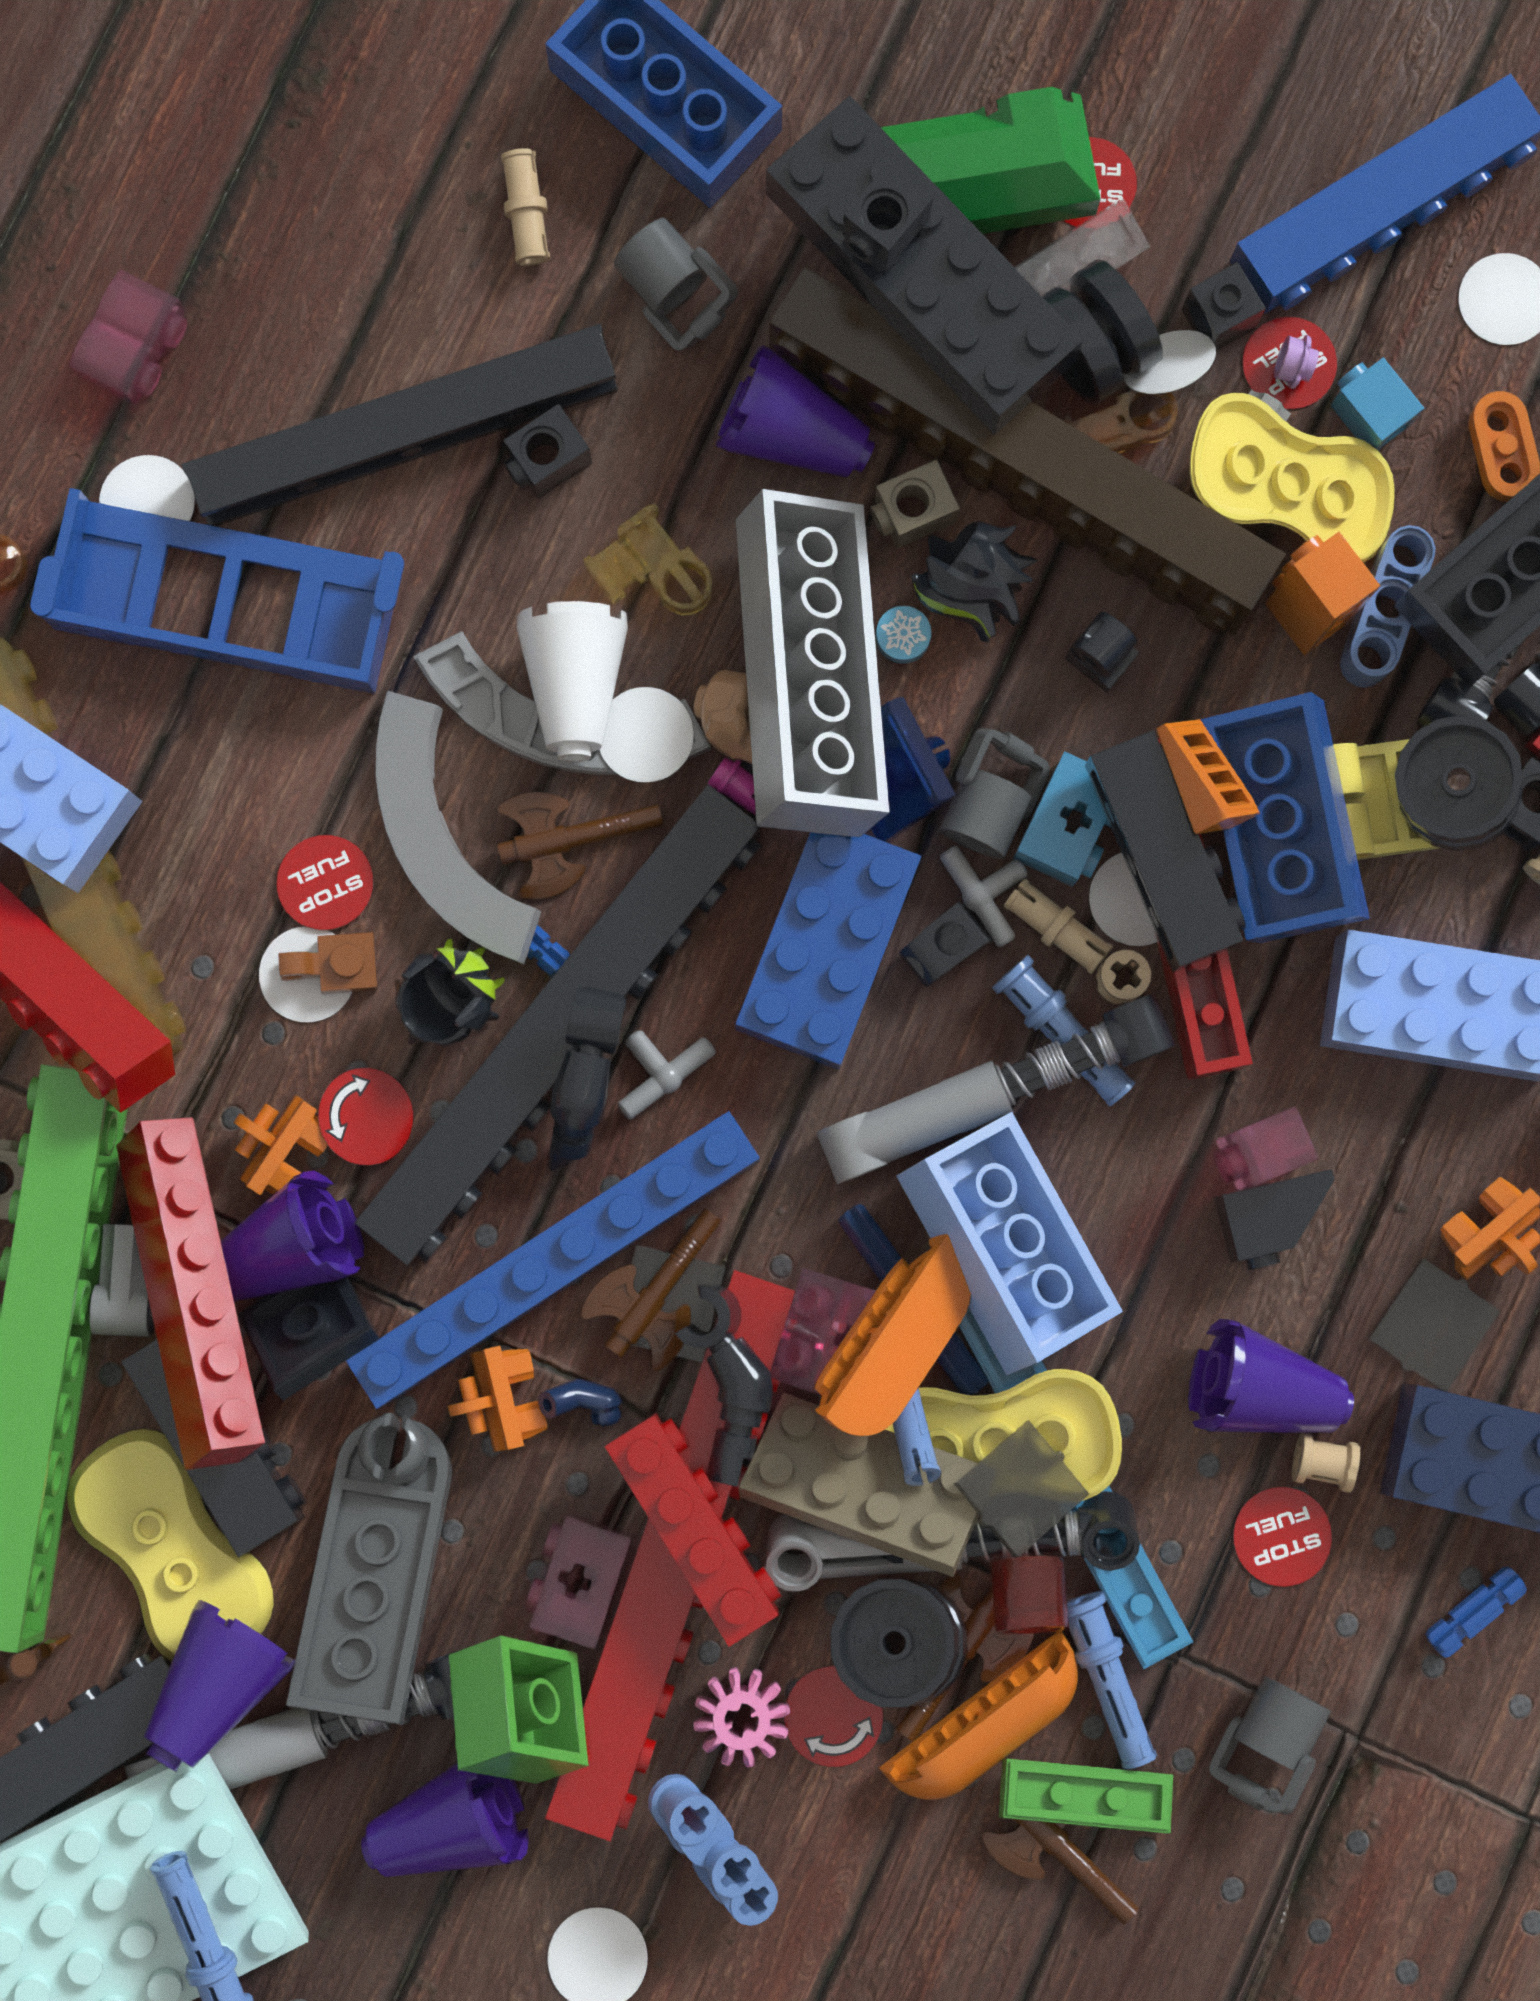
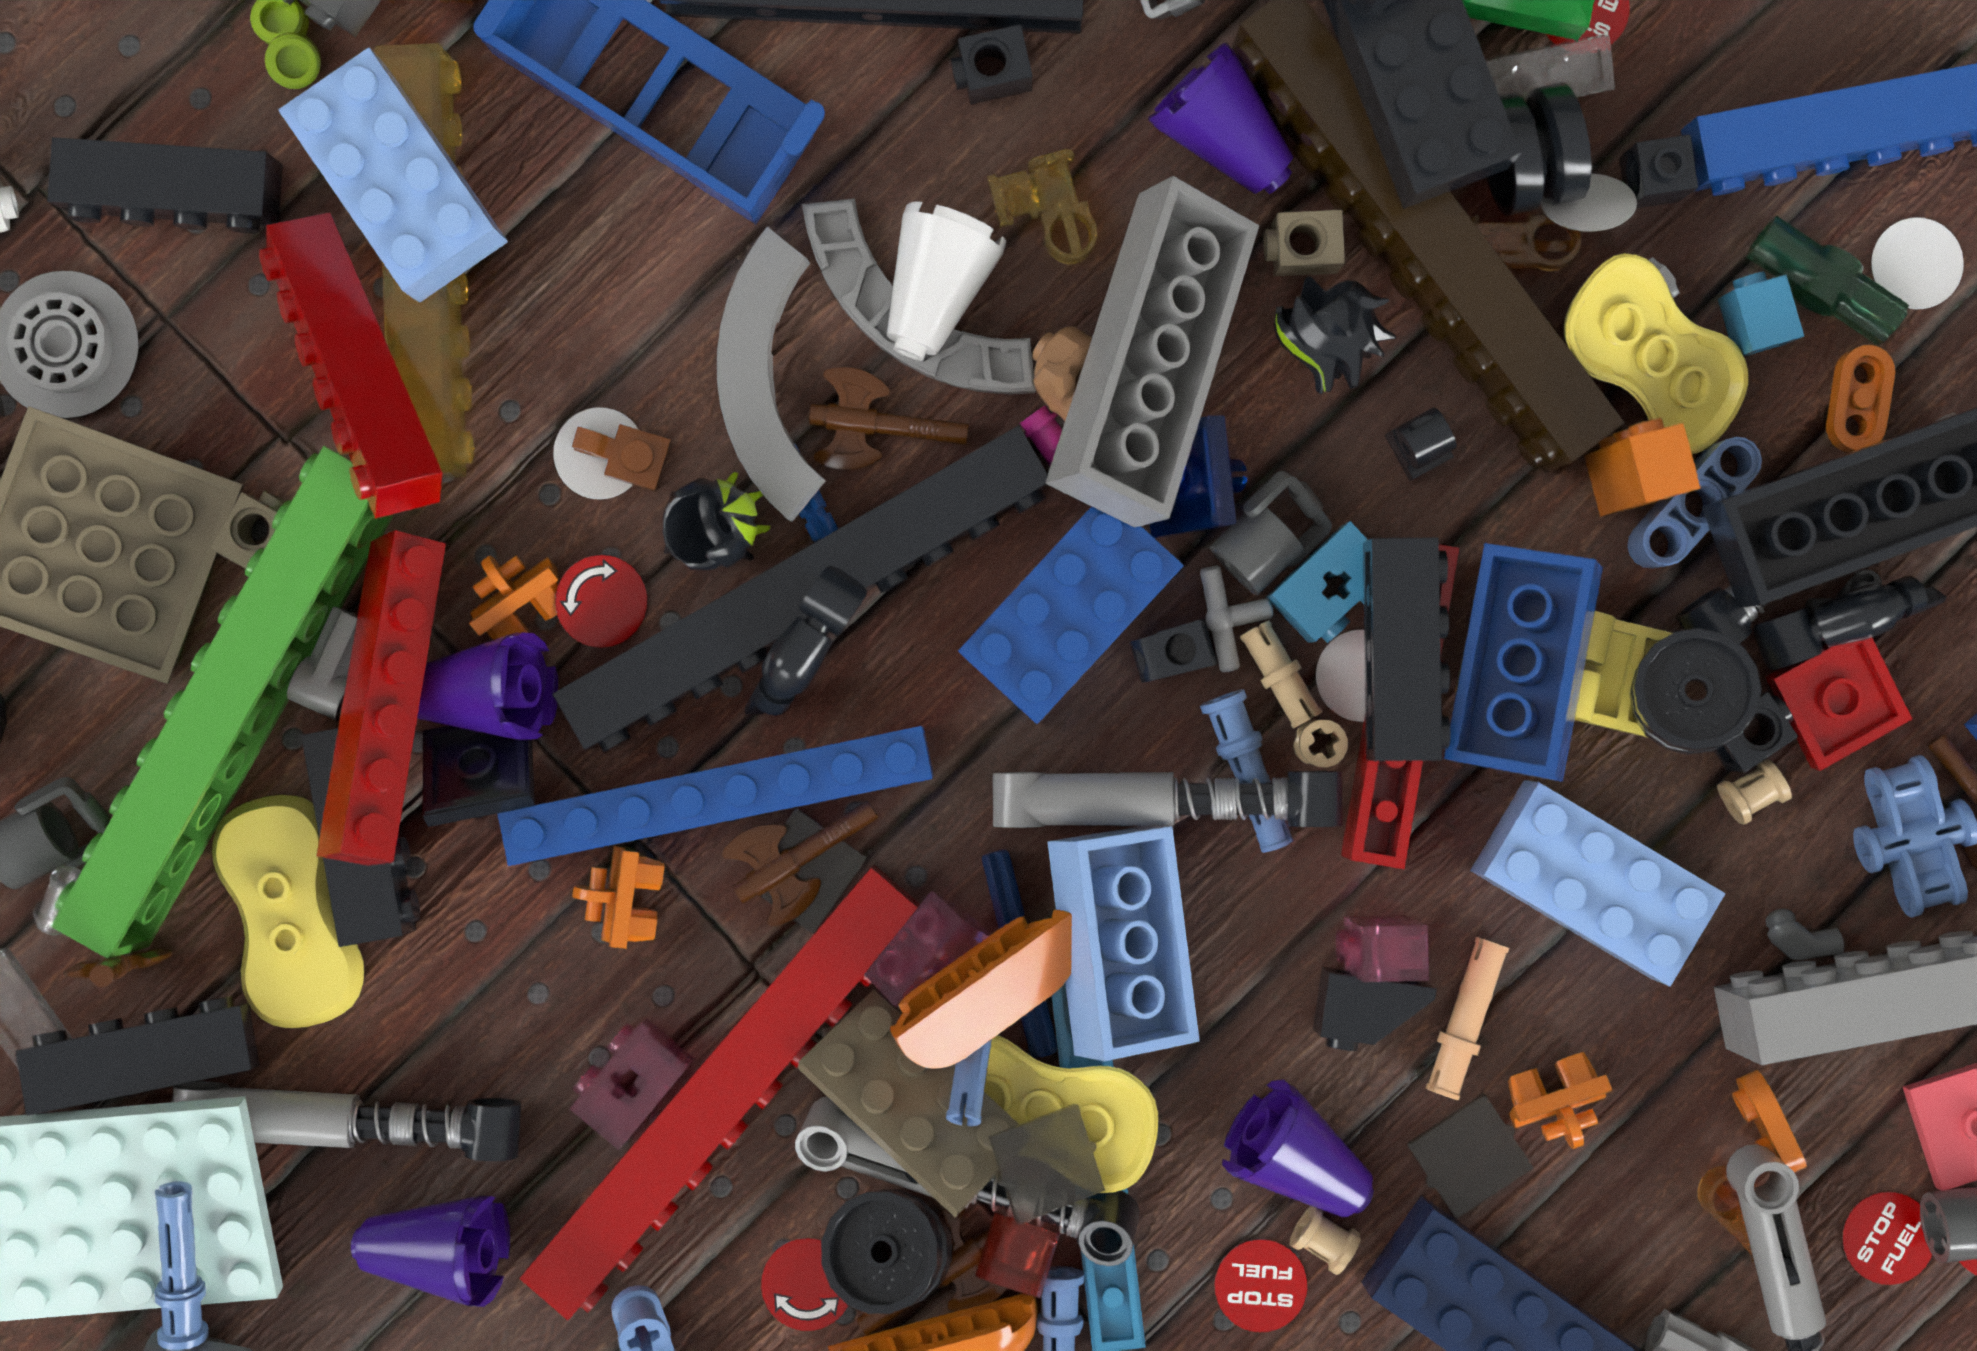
camera: 25 degrees right, 5 degrees up
(211, 1686) = (268, 1053): dark purple cone -> none
(324, 882) = (646, 377): red sticker -> none
(373, 1573) = (451, 1007): dark grey plate -> none
(517, 1710) = (529, 1179): bright green brick -> none
(582, 1394) = (697, 921): dark blue arm -> none
(647, 735) = (982, 358): white sticker -> none
(664, 1076) = (879, 669): light grey piece -> none
(693, 1530) = (743, 1084): red brick -> none
(742, 1384) = (837, 971): black piece -> none
(751, 1734) = (732, 1274): bright pink gear -> none
(903, 634) = (1248, 357): medium azure tile -> none
(1205, 778) = (1467, 599): orange slope -> none
(1261, 356) = (1698, 244): red sticker -> none
(1296, 361) = (1704, 246): lavender plate -> none
(1375, 1189) = (1467, 1019): none -> light nougat pin
(1426, 347) = (1828, 280): none -> clear green piece

